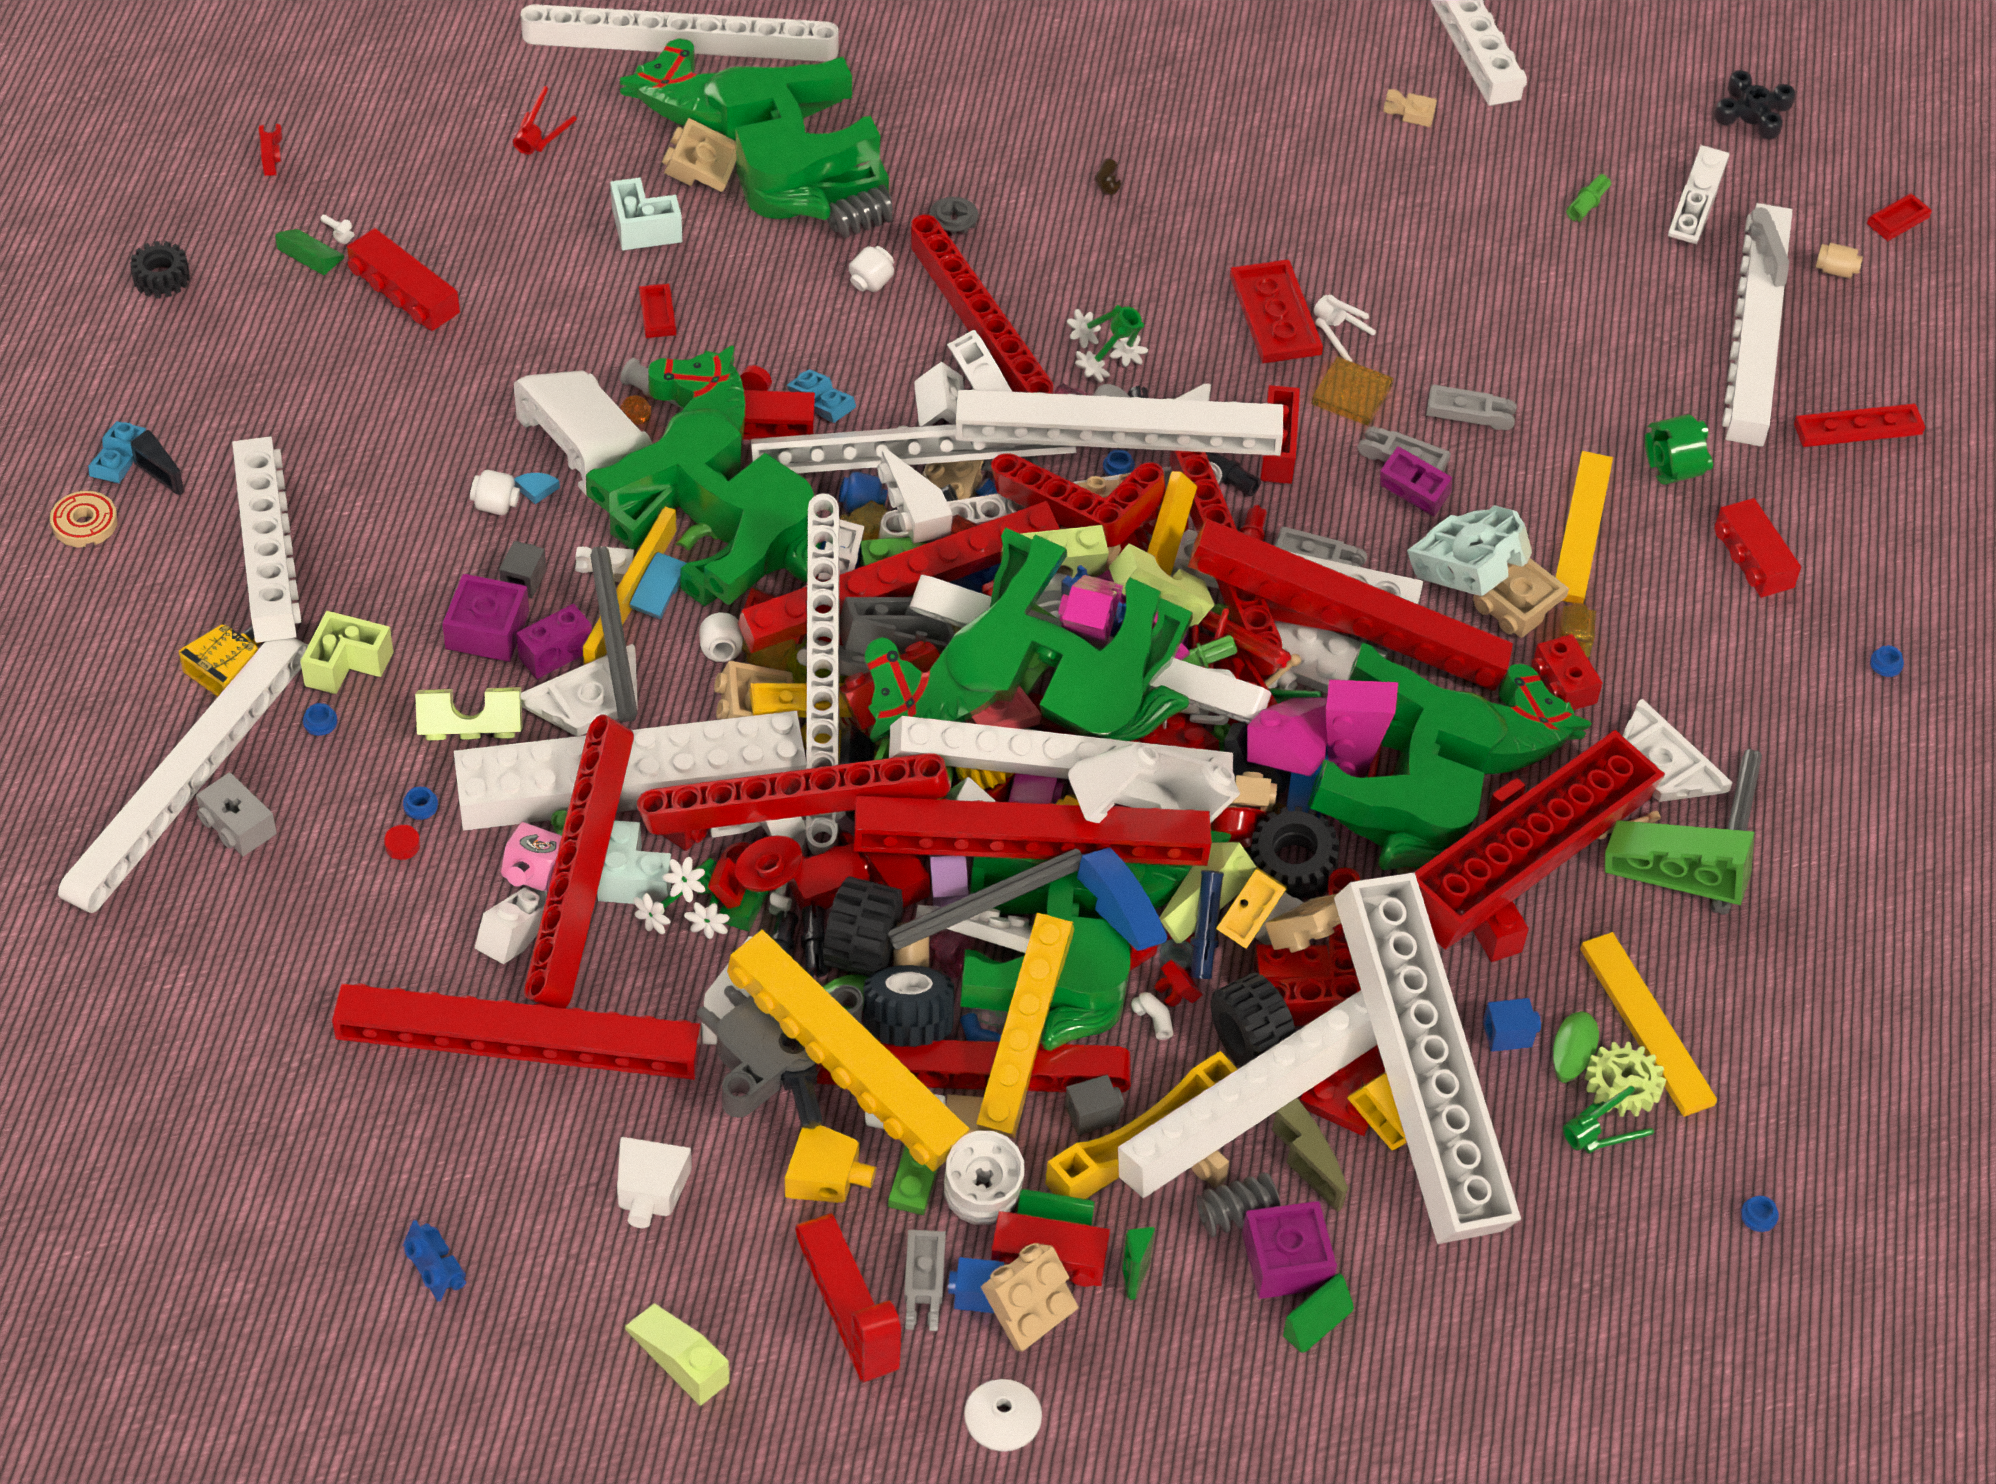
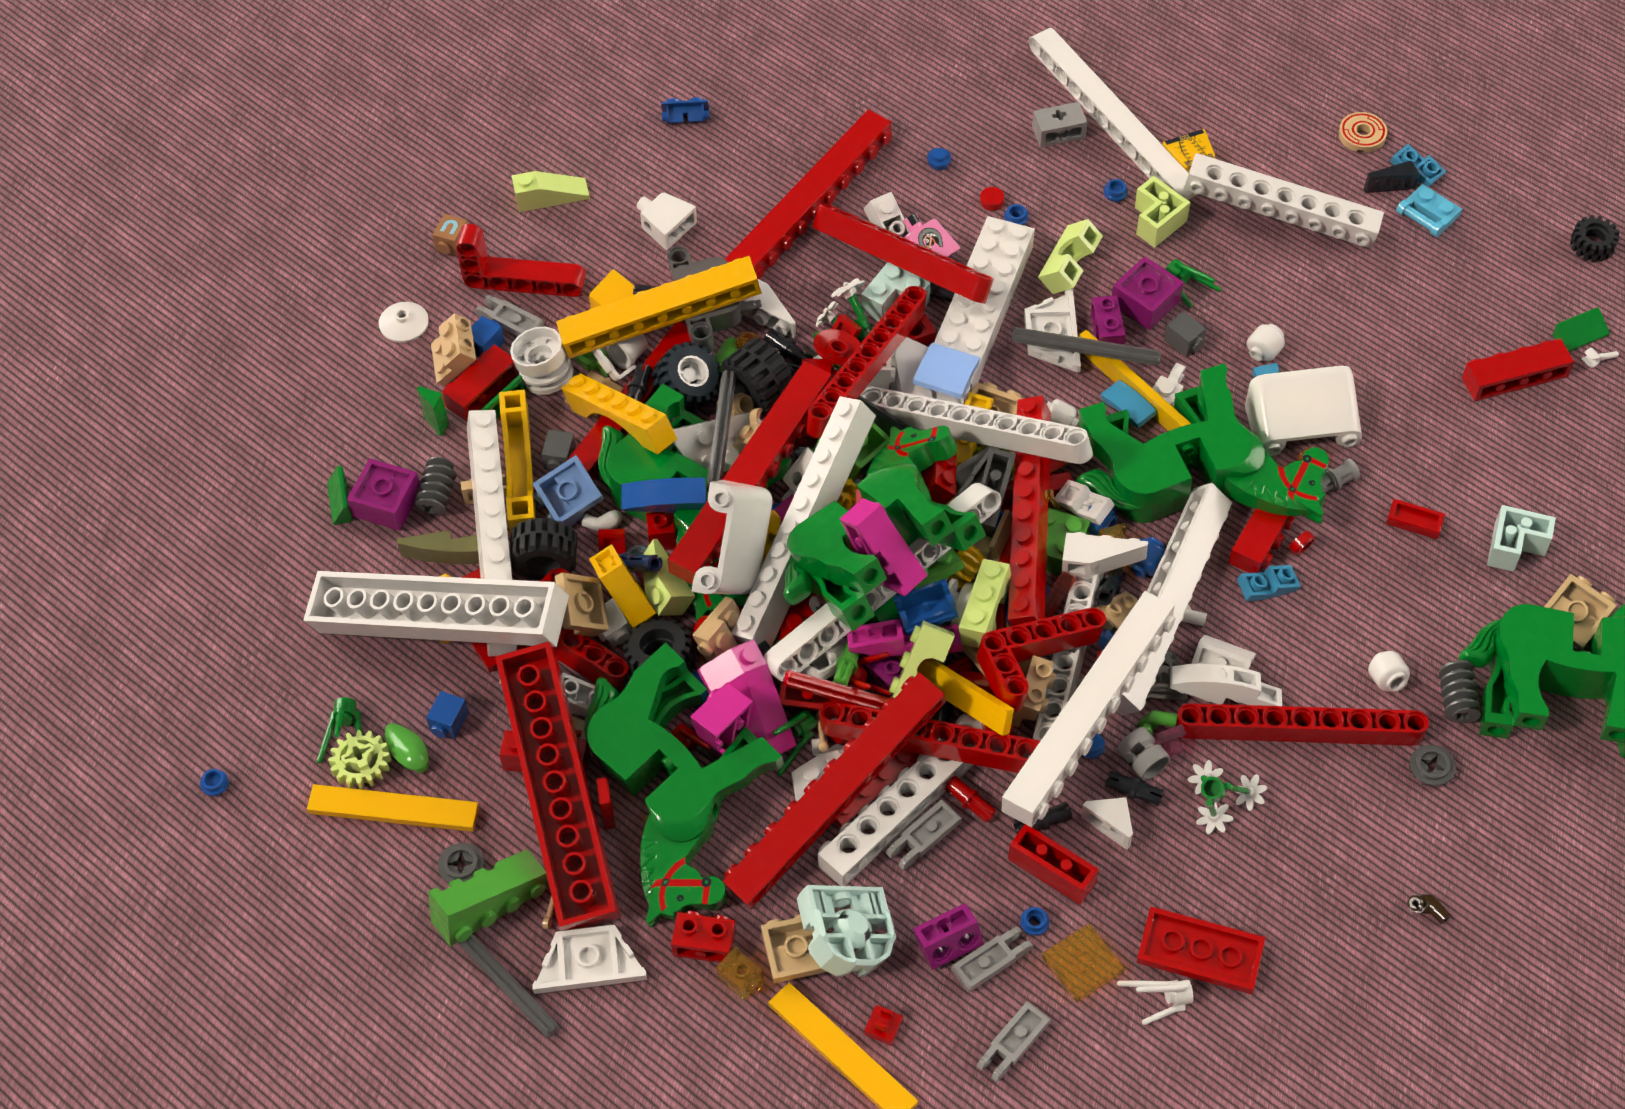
camera: 125 degrees right, 5 degrees up
(180, 418) = (1429, 210): none -> medium azure plate
(363, 925) = (939, 158): none -> blue plate
(426, 606) = (1184, 273): none -> green plant
(746, 731) = (946, 370): none -> light blue slope
(833, 1427) = (447, 234): none -> medium nougat brick
(955, 886) = (747, 431): none -> tan plate
(961, 1046) = (637, 386): none -> black pin
(1154, 1049) = (567, 492): none -> medium blue plate
(1340, 437) = (1038, 914): none -> blue plate
(1532, 507) = (883, 1025): none -> red tile
(1658, 911) = (451, 858): none -> dark grey gear

